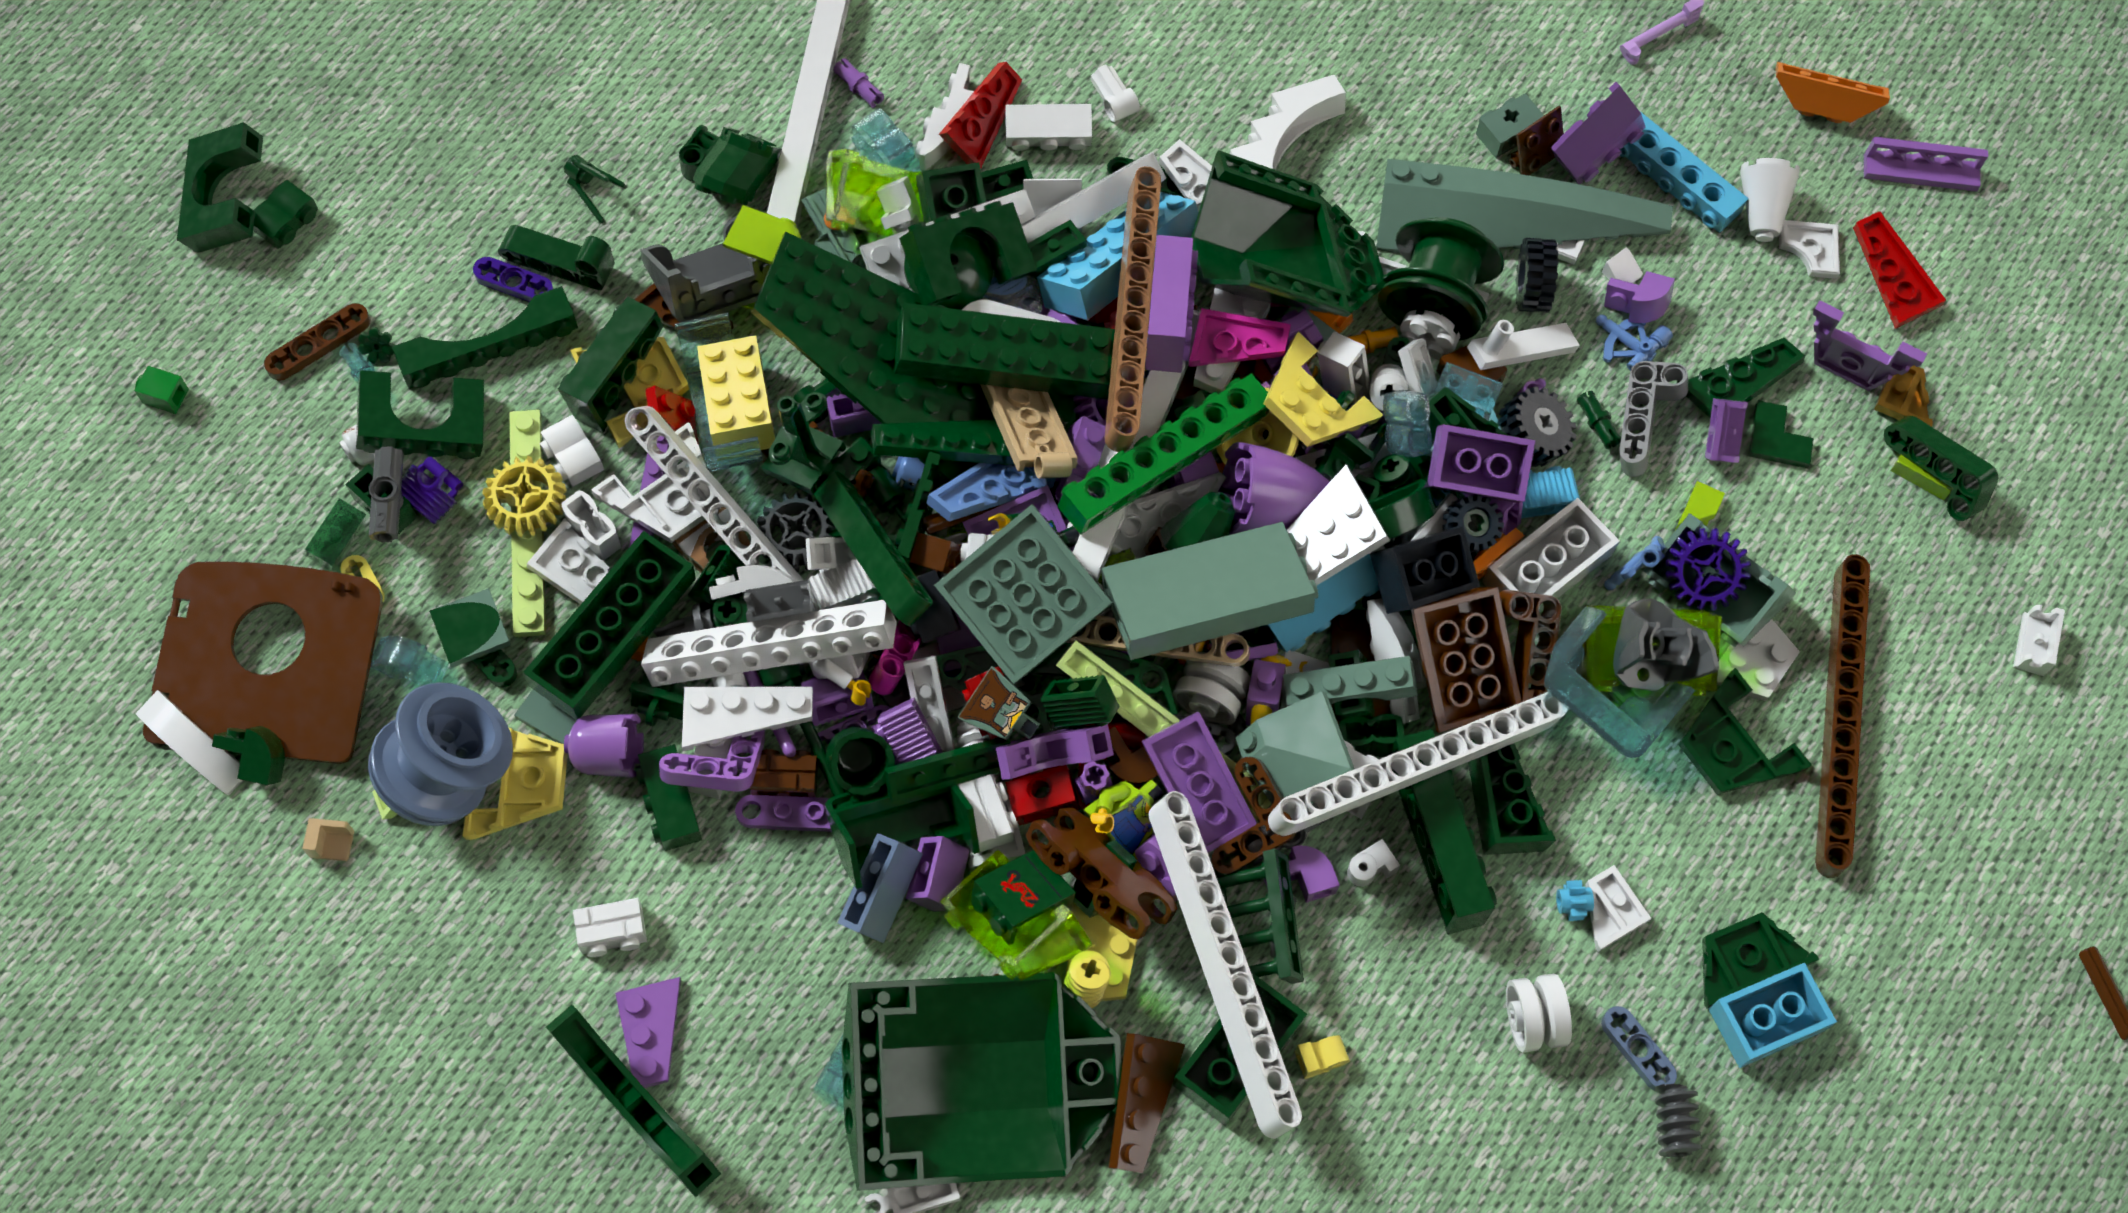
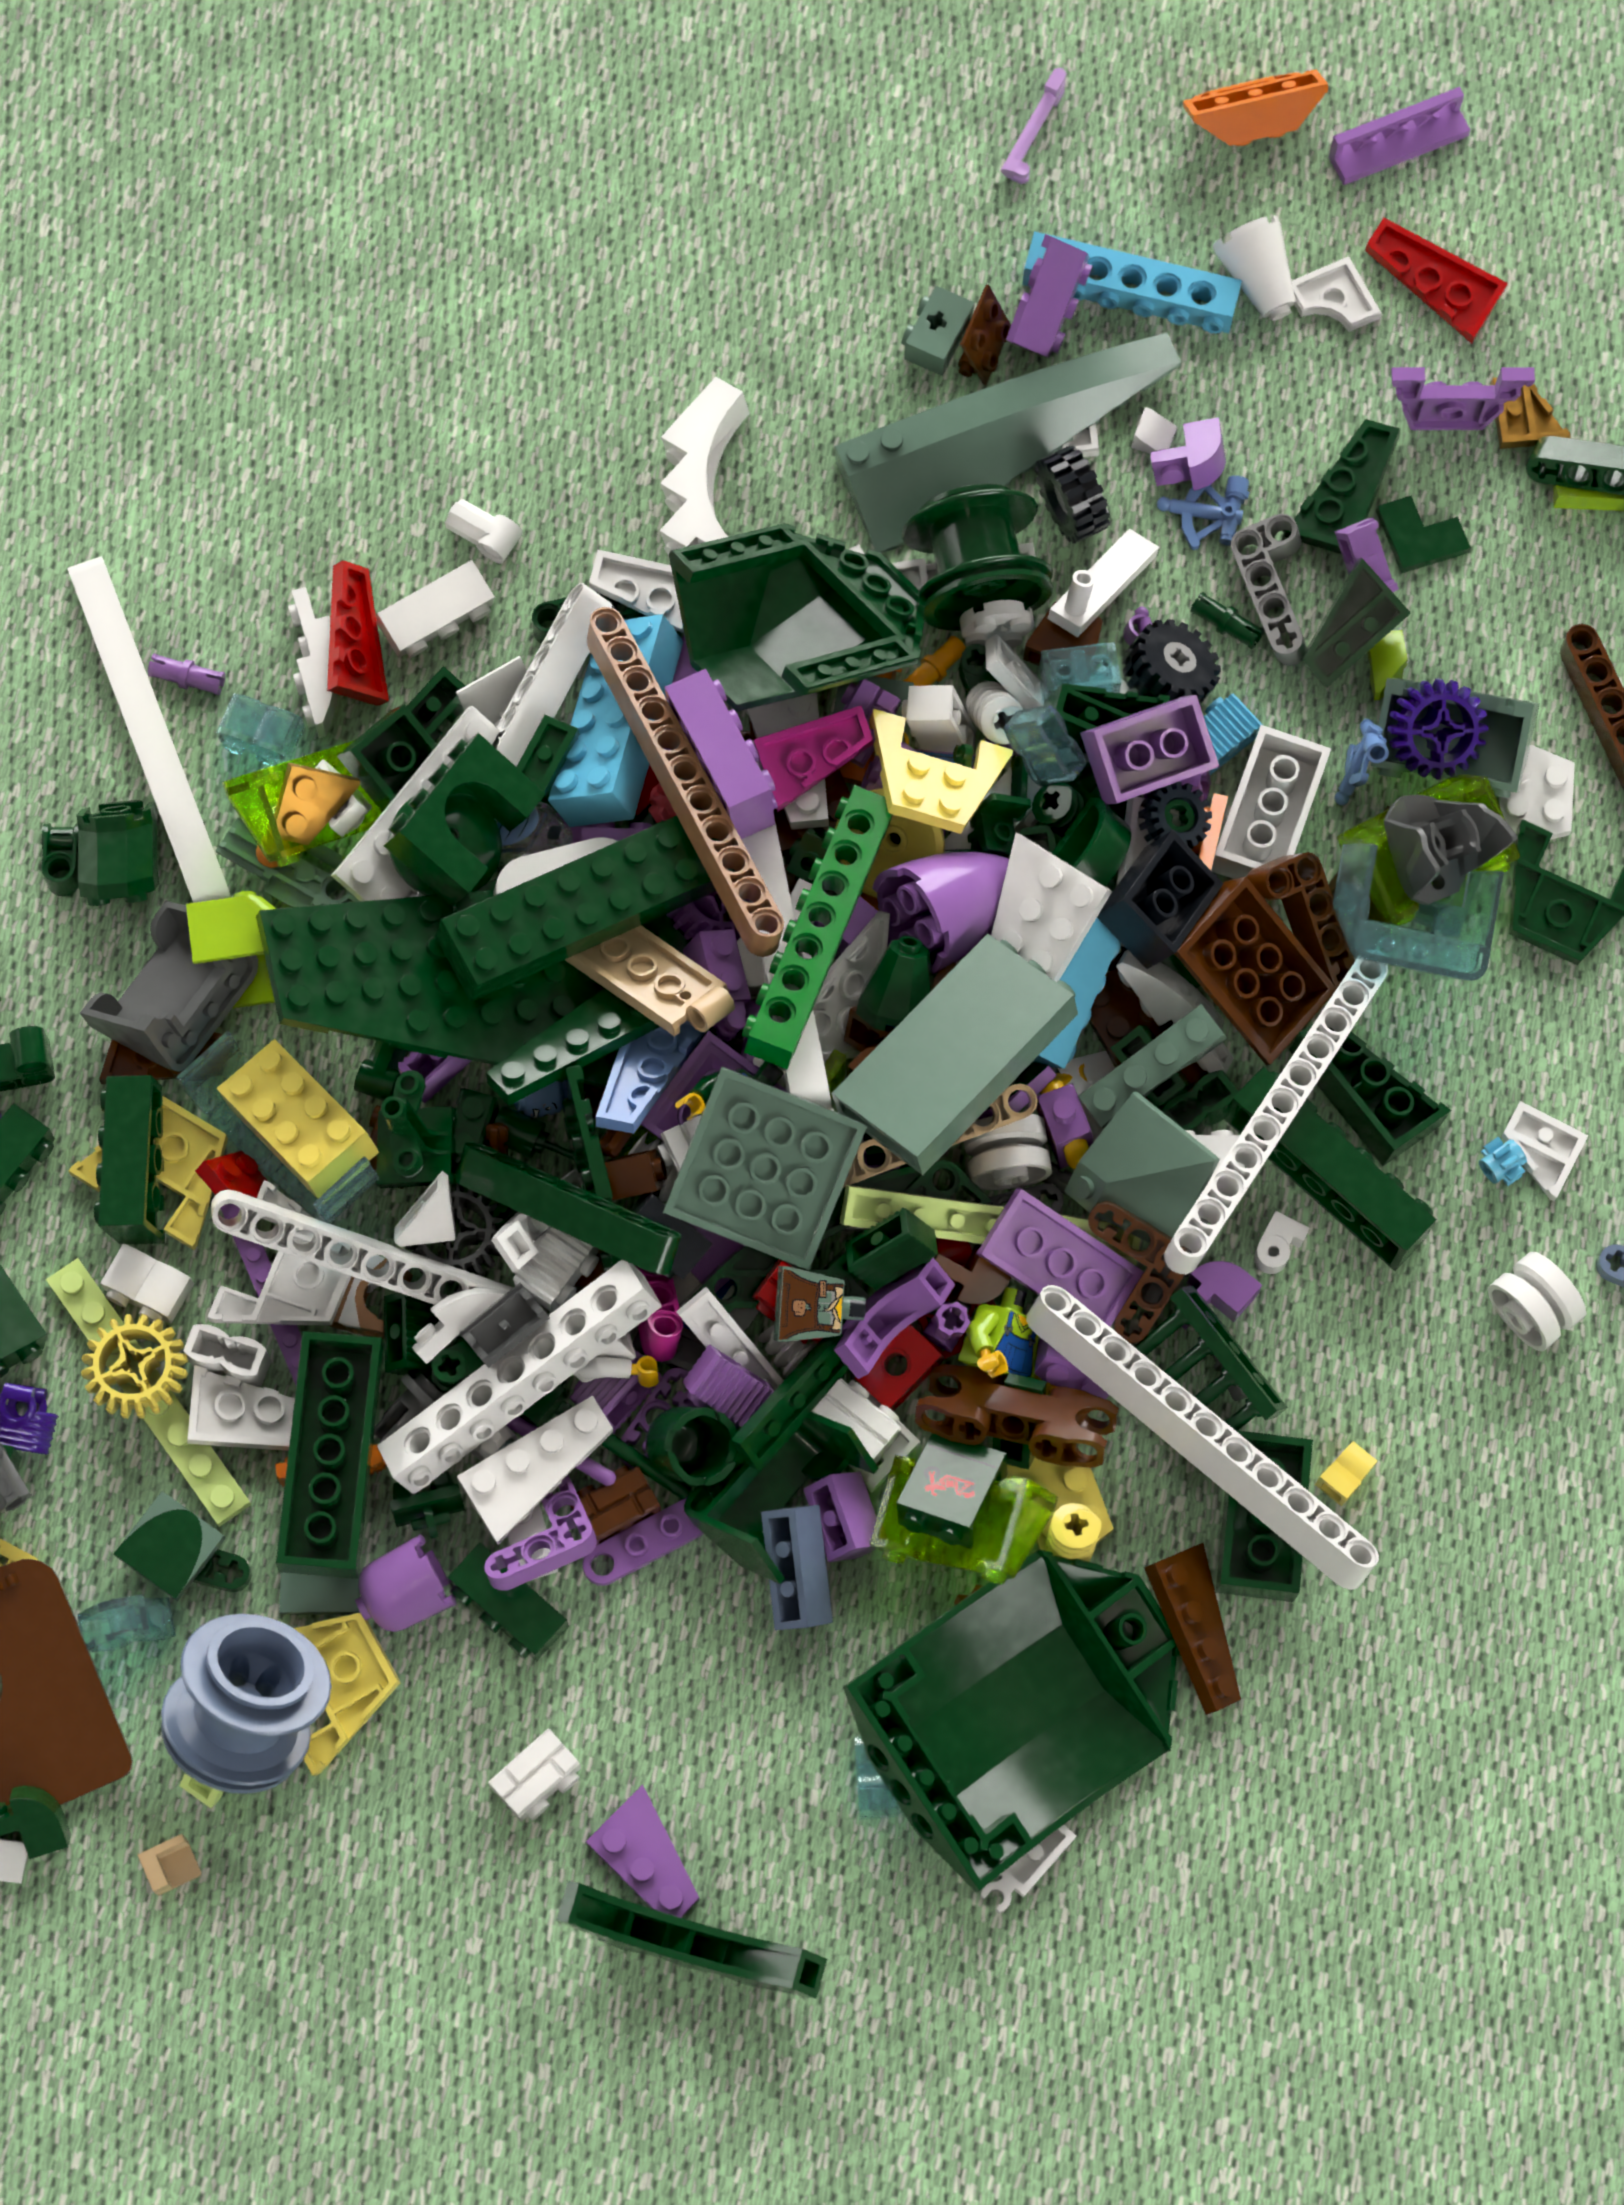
camera: 30 degrees left, 5 degrees up
(782, 508) = (429, 1218): none -> white slope
(877, 195) = (310, 801): none -> pearl gold wing
(1689, 466) = (1353, 625): none -> dark green wedge

